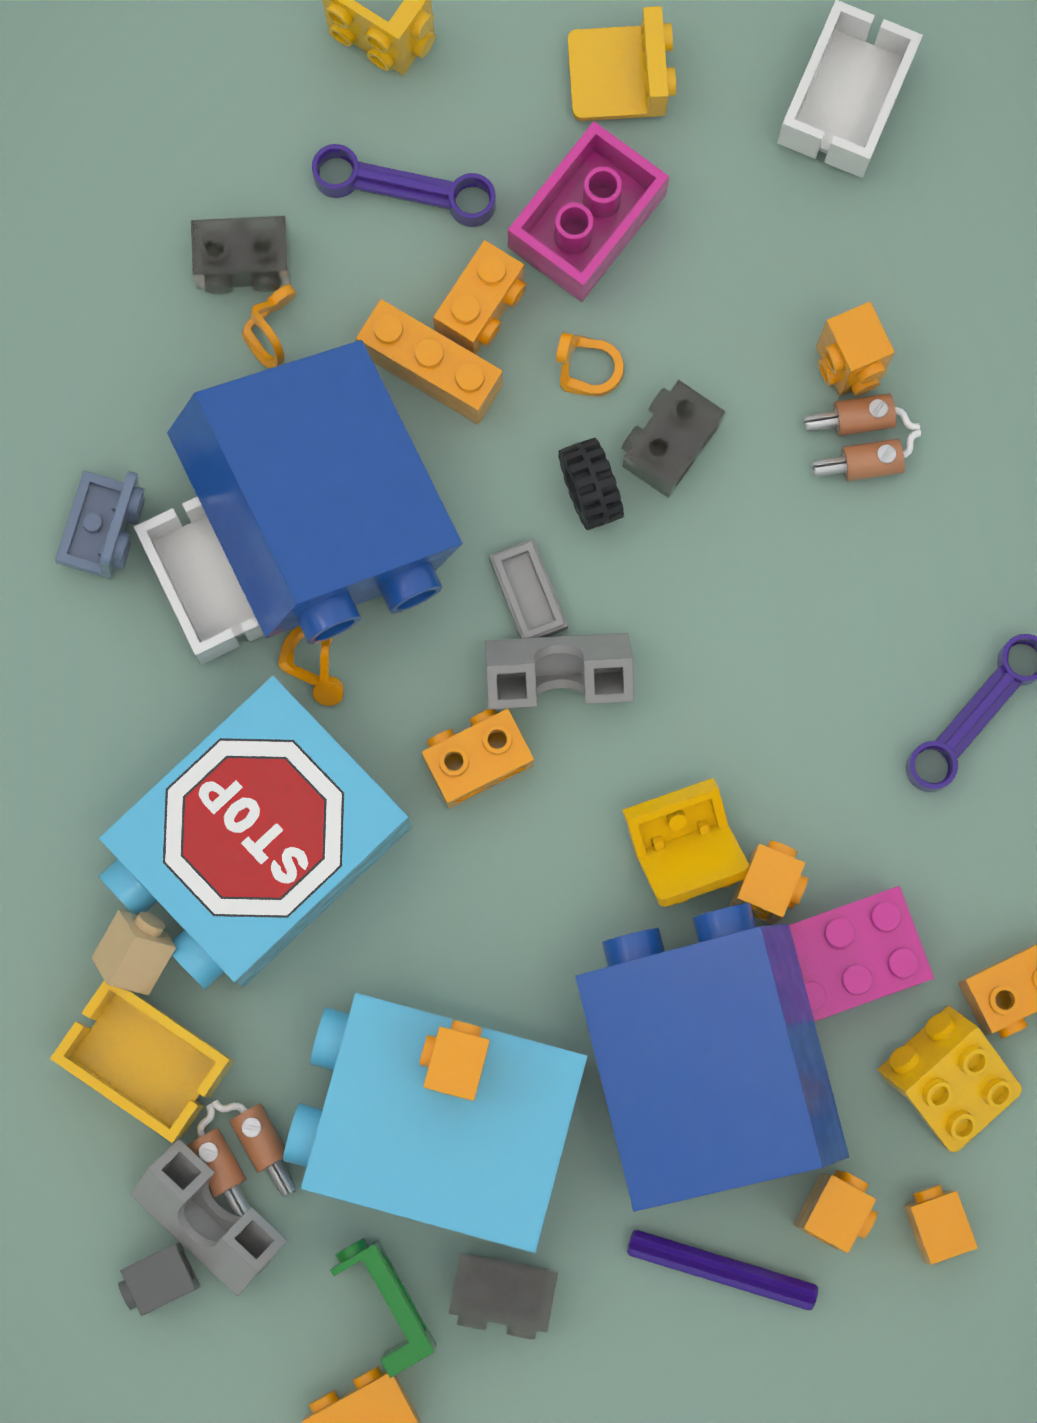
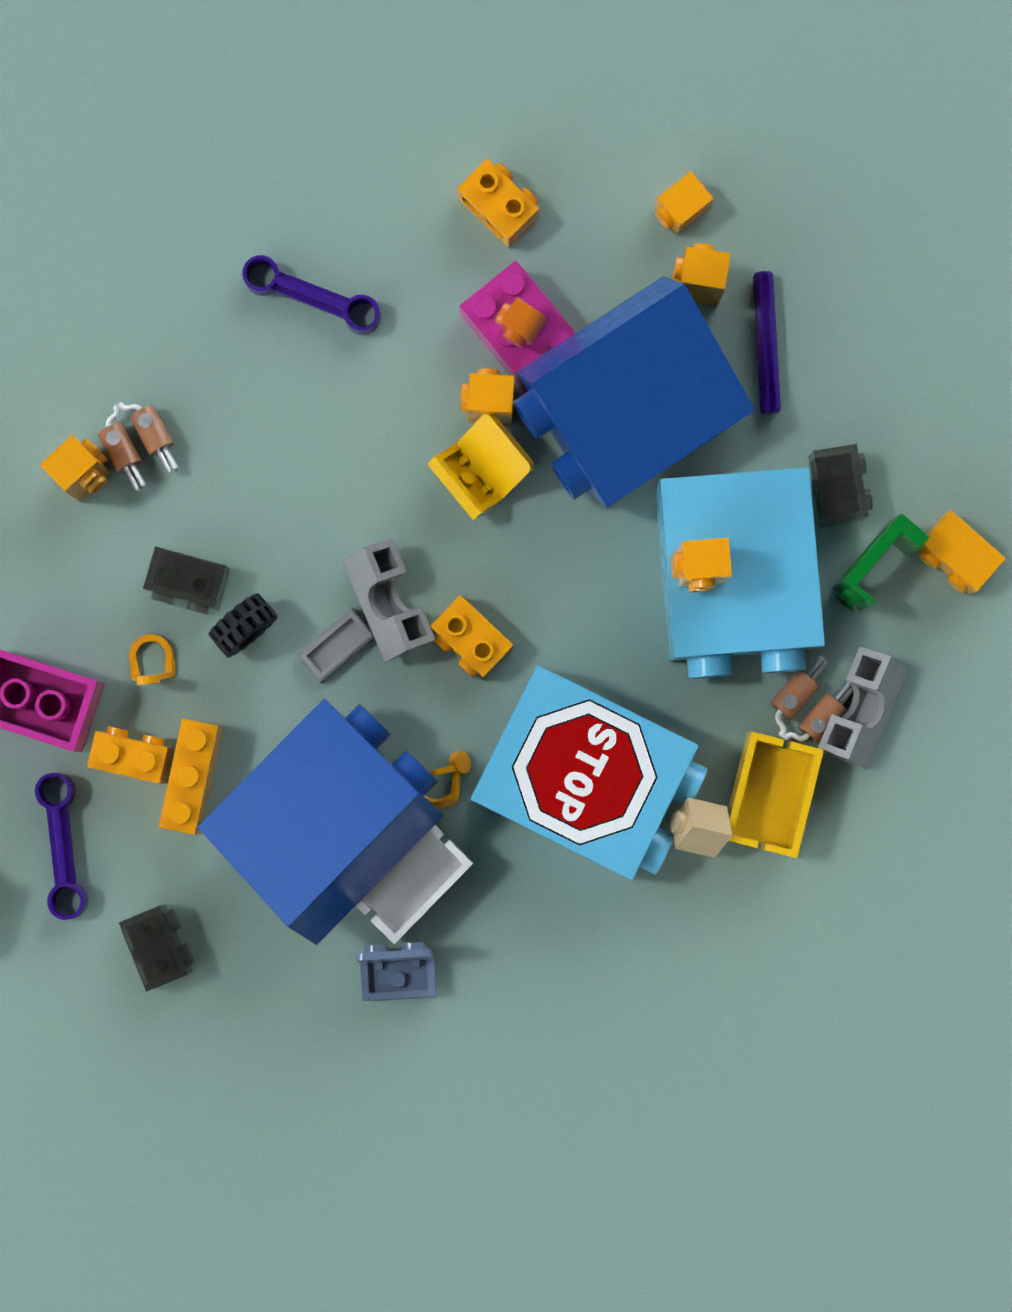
camera: 110 degrees left, 5 degrees up
(158, 1279) = (917, 728): dark grey brick -> none
(260, 311) = (219, 915): light orange piece -> none
(848, 949) = (520, 322): none -> orange plate
(952, 1078) = (577, 229): yellow bracket -> none

